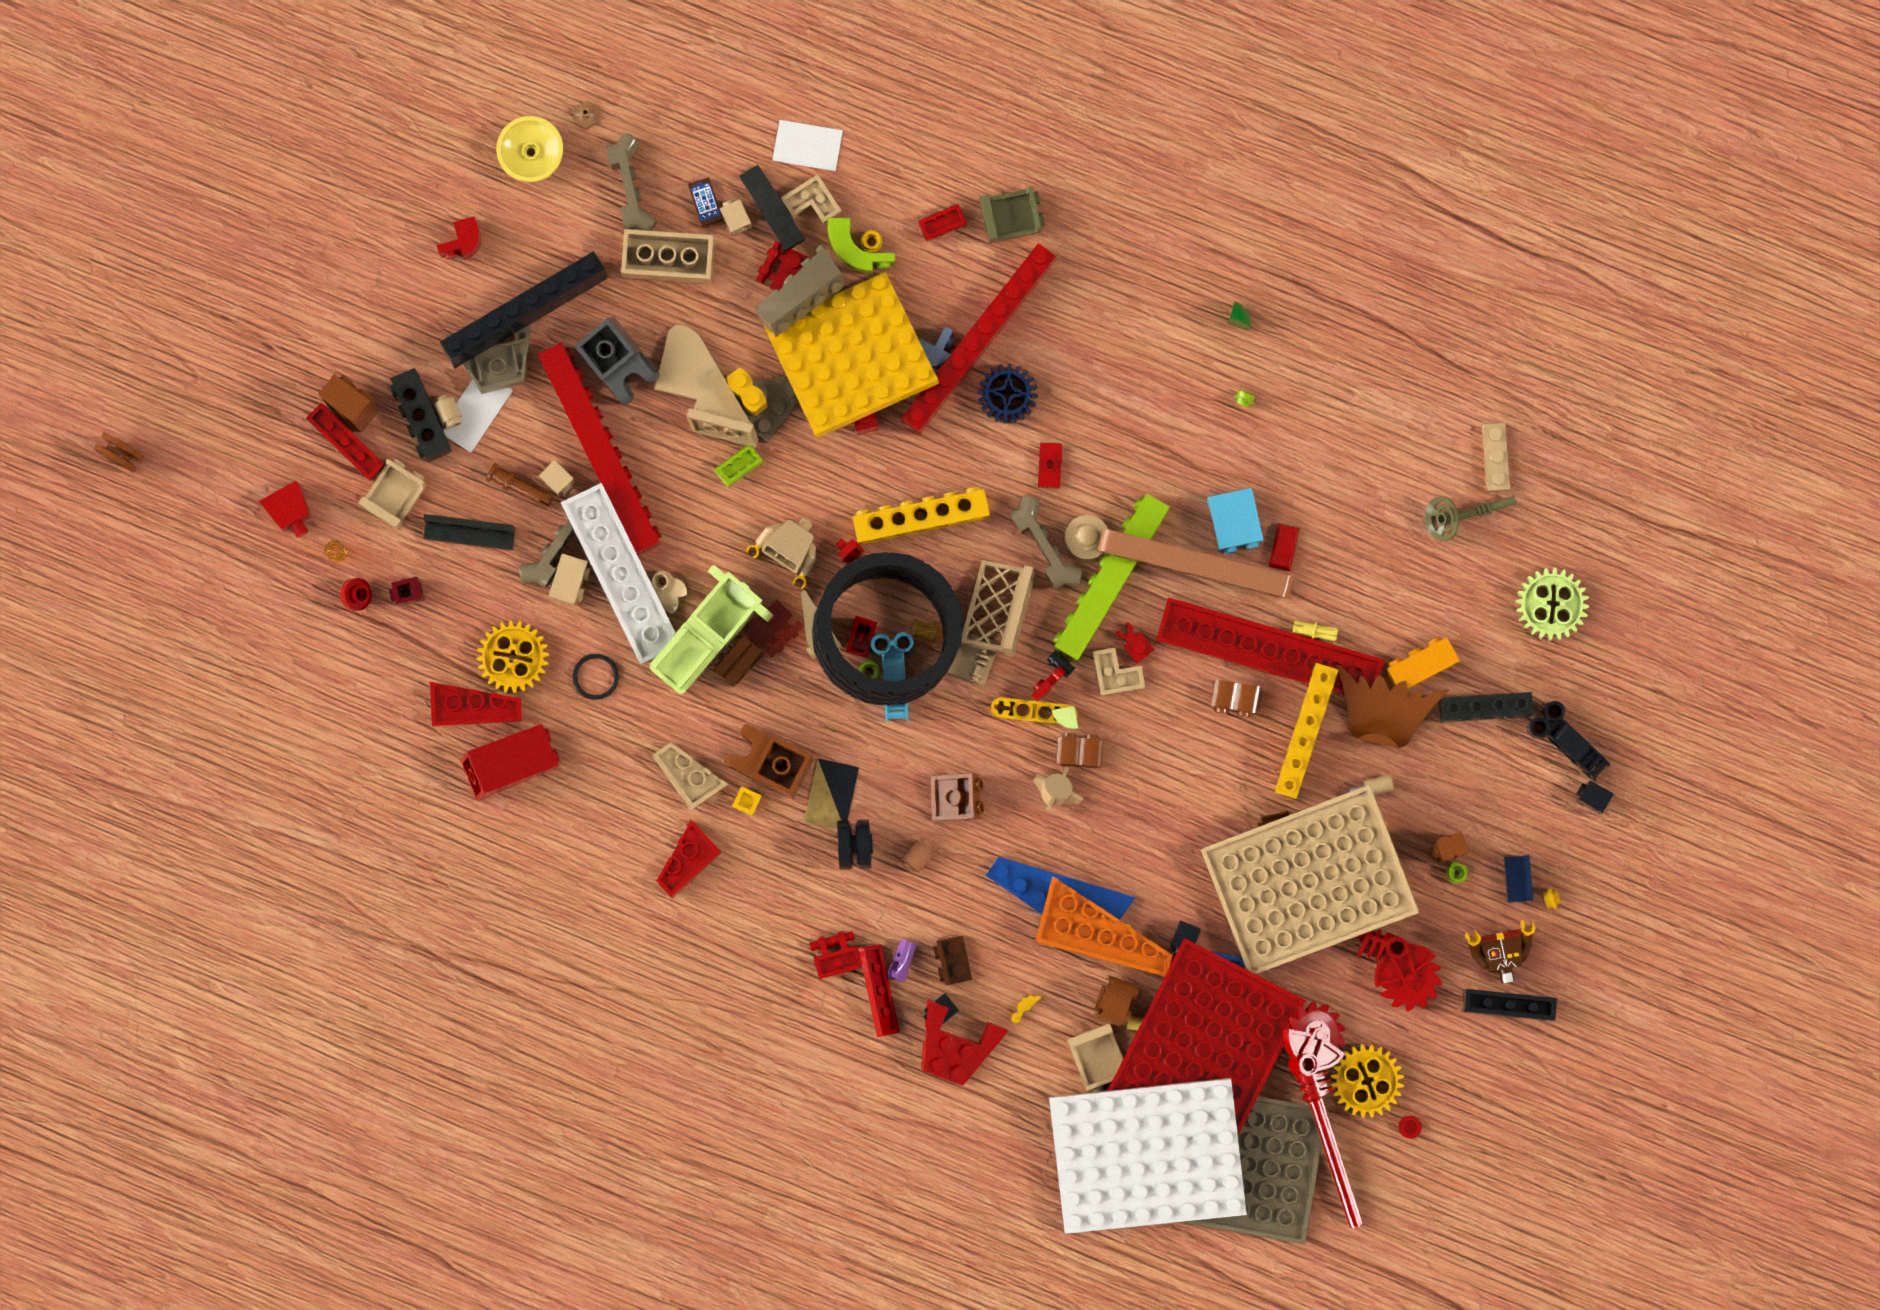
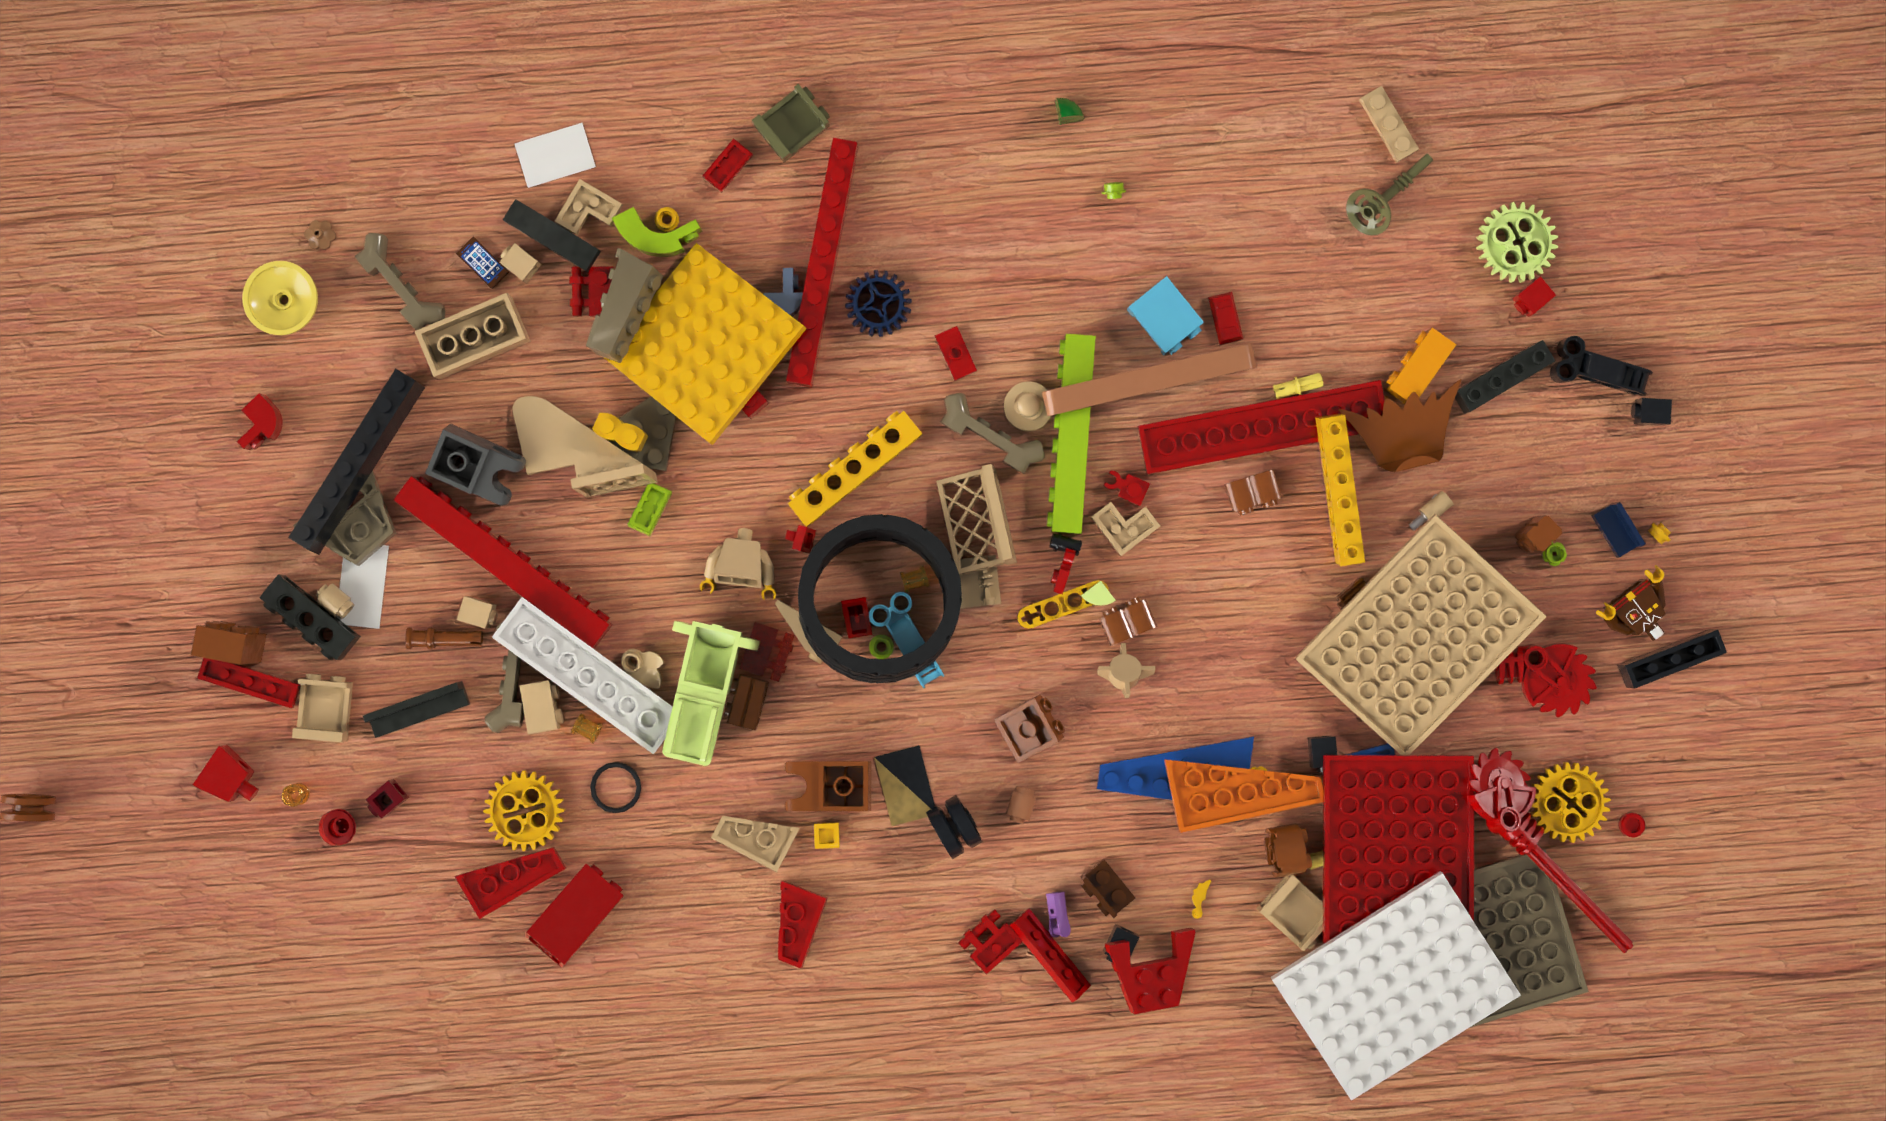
camera: 30 degrees left, 5 degrees up
(597, 616) = (587, 728): none -> clear yellow bush
(1543, 655) = (1533, 297): none -> red brick

